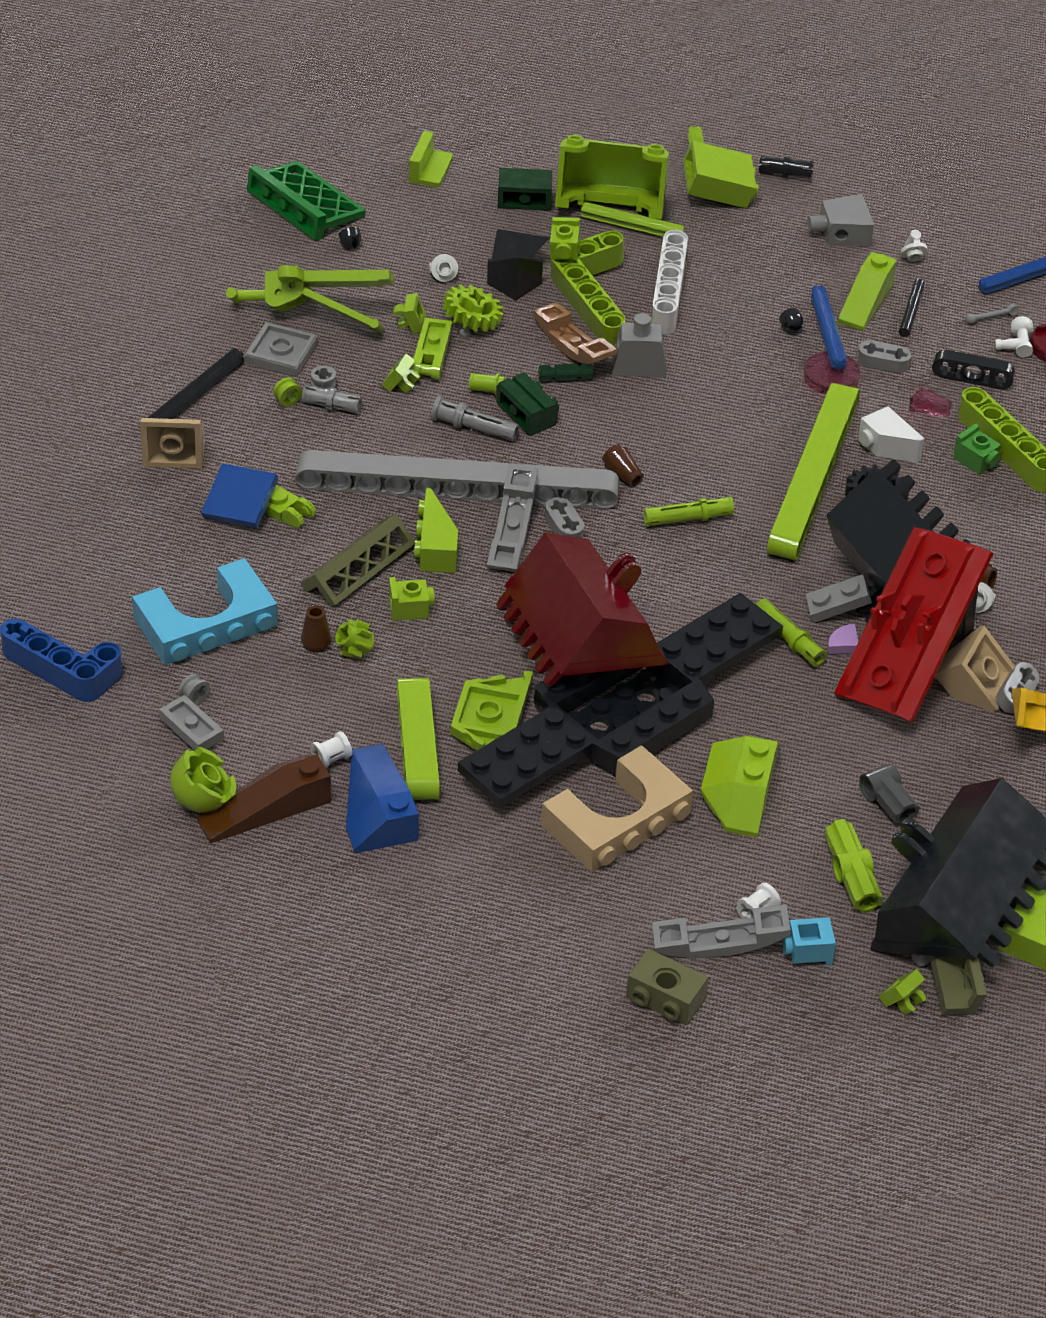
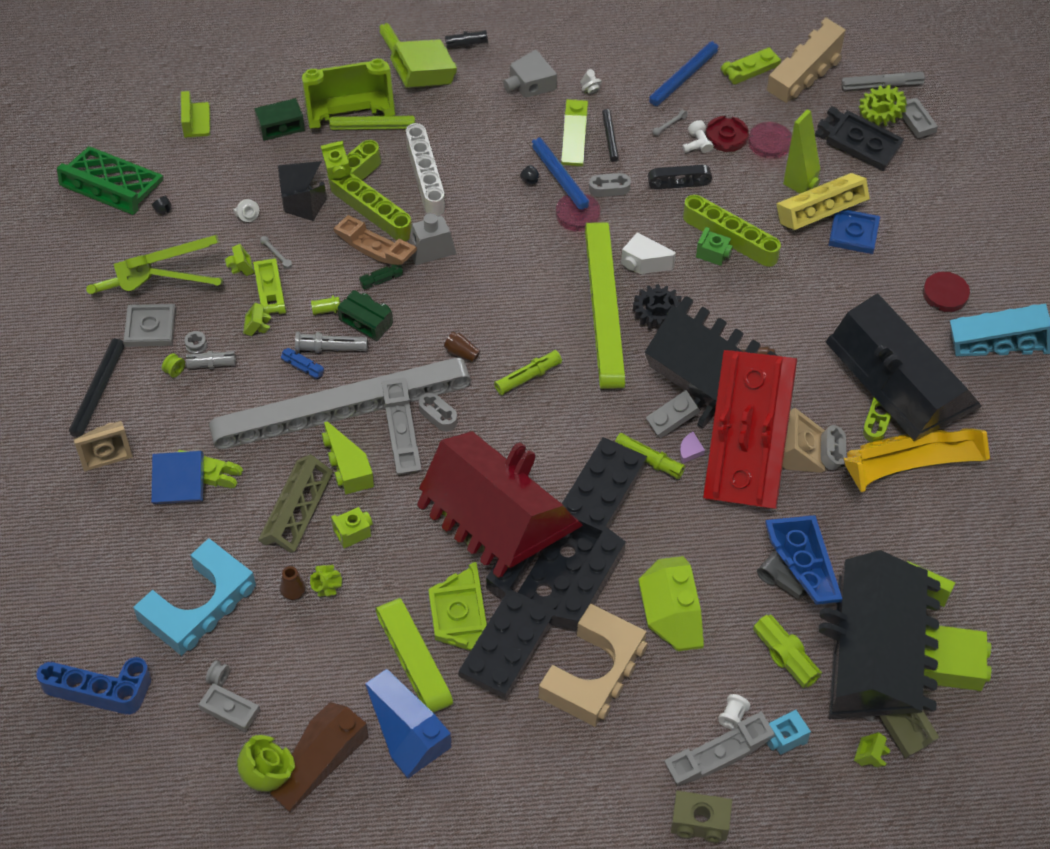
camera: 20 degrees left, 10 degrees up
(332, 749) = (351, 691): white bush -> none
(433, 431) = (302, 363): none -> blue axle
(472, 308) = (286, 241): lime gear -> none
(918, 770) = (804, 552): none -> blue wedge
(929, 403) = (661, 215): clear pink piece -> none

